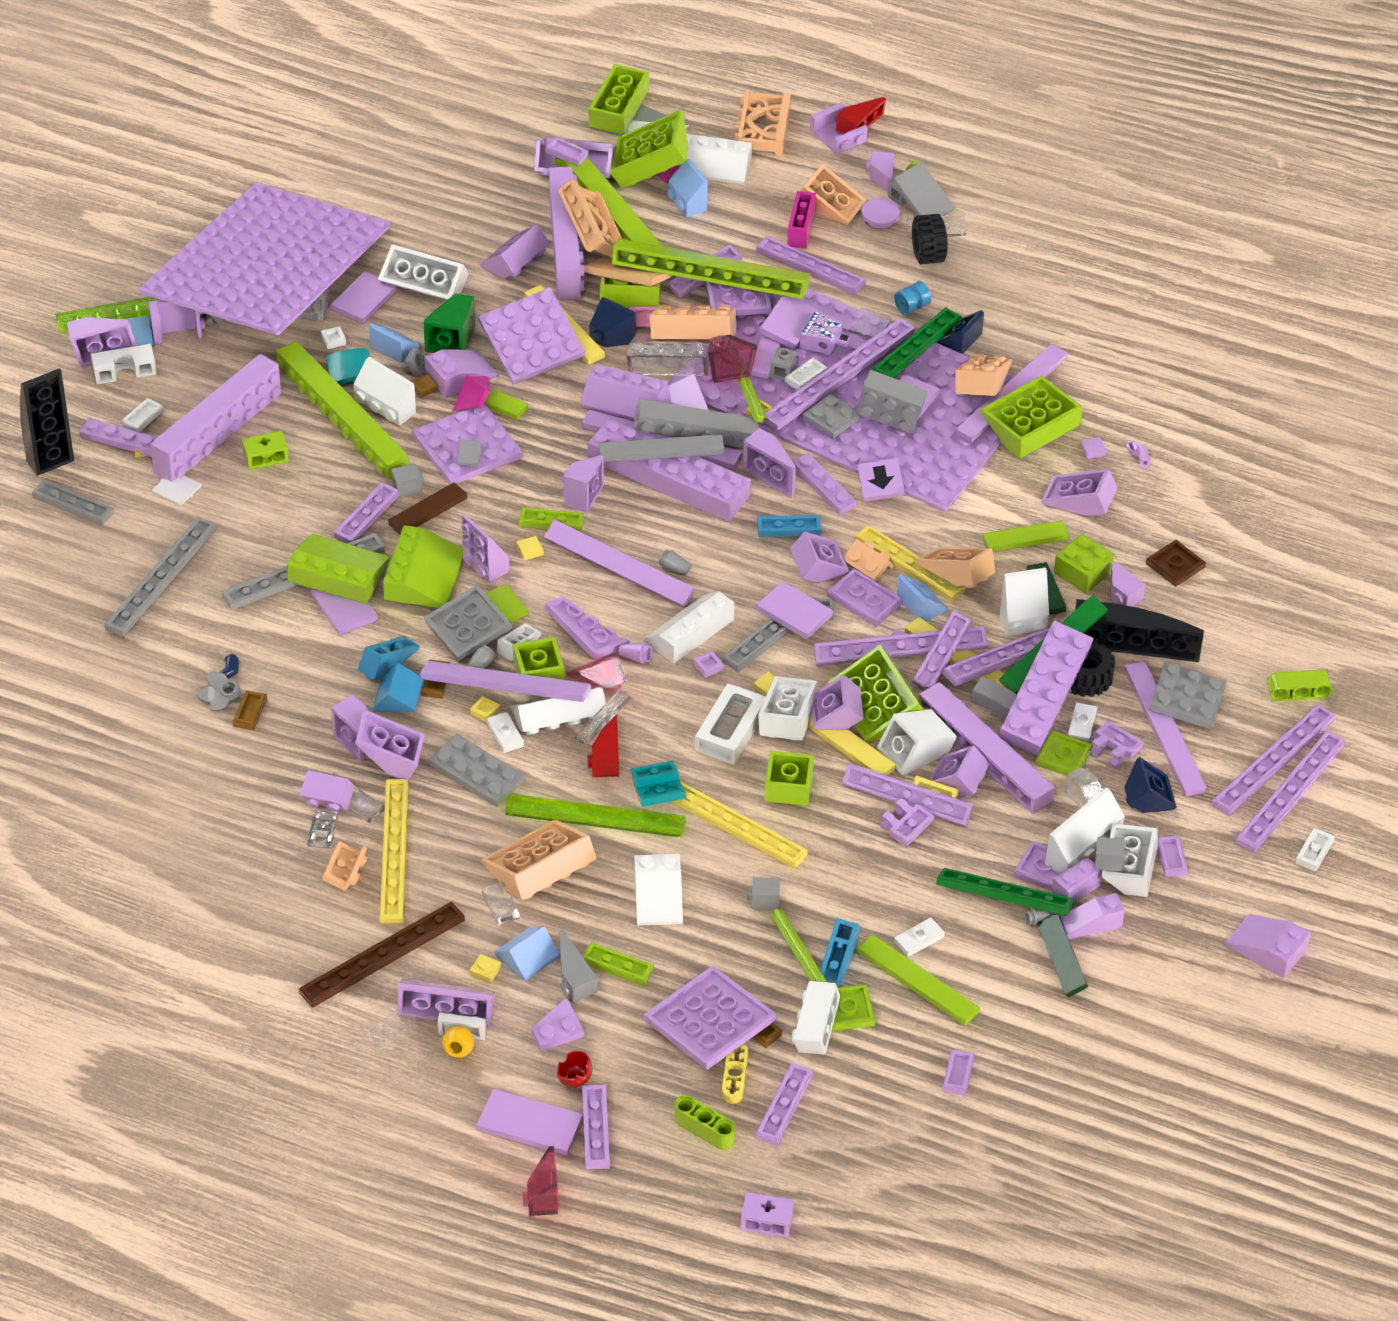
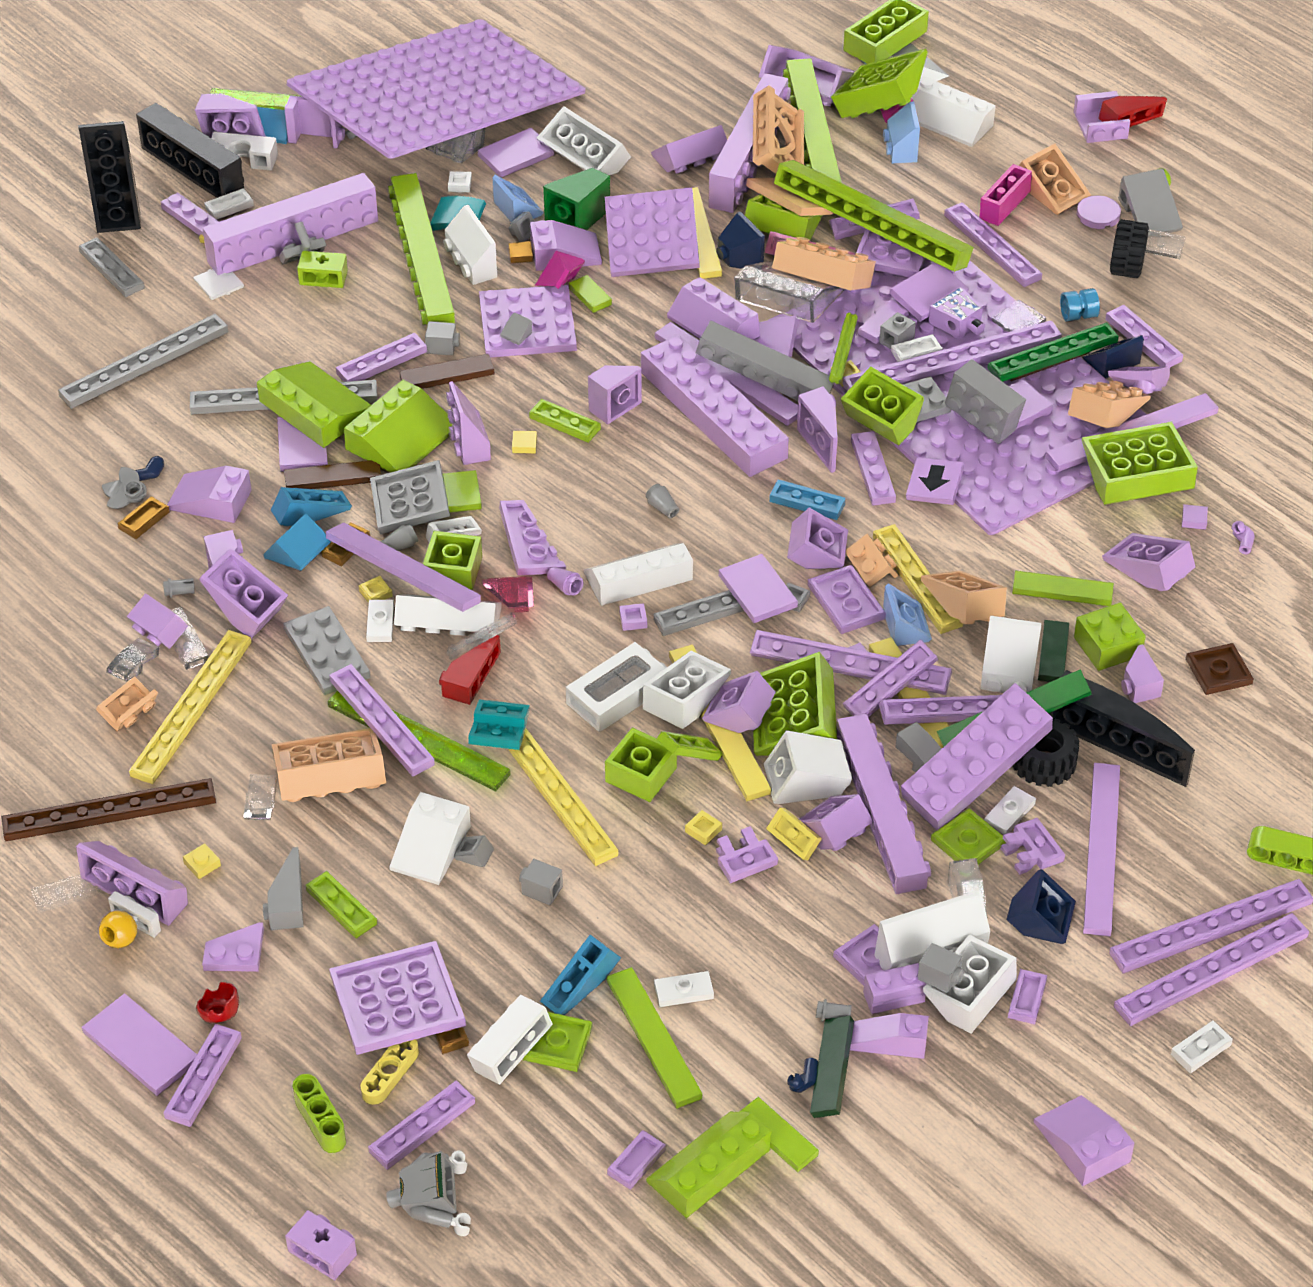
camera: 25 degrees right, 0 degrees up
(86, 378) = (189, 151): none -> black brick
(241, 432) = (292, 252): none -> light grey plate
(296, 671) = (212, 493): none -> lavender slope
(317, 759) = (178, 587): none -> light grey pin
(386, 625) = (332, 475): none -> tile
(528, 952) = (255, 860): light blue slope -> none
(542, 1187) = (103, 1120): clear pink slope -> none
(563, 810) = (382, 720): none -> lavender plate
(567, 151) = (796, 64): lavender tile -> none
(619, 563) = (605, 485): lavender tile -> none
(662, 448) = (710, 378): light grey tile -> none
(695, 888) = (474, 850): none -> light grey slope
(731, 358) = (841, 309): clear pink slope -> none
(772, 104) = (1049, 78): light nougat fence -> none
(797, 946) = (540, 953): lime axle -> none
(811, 429) = (883, 405): none -> lime slope
(821, 751) = (689, 746): none -> lime tile
(825, 1147) = (429, 1190): none -> light grey torso
(862, 811) = (703, 827): none -> light yellow plate
(881, 168) = (1124, 163): lavender slope -> none
(894, 789) = (765, 825): lavender tile -> none
(965, 306) = (1154, 344): none -> lavender plate
(995, 344) = (1145, 378): none -> lavender slope
(1005, 891) = (808, 971): green tile -> none
(1014, 1052) = (711, 1161): none -> lime slope
(1048, 971) = (806, 1079): none -> dark blue arm
(1050, 1017) = (784, 1138): none -> lime tile
(1188, 695) = (1148, 819): light grey plate -> none

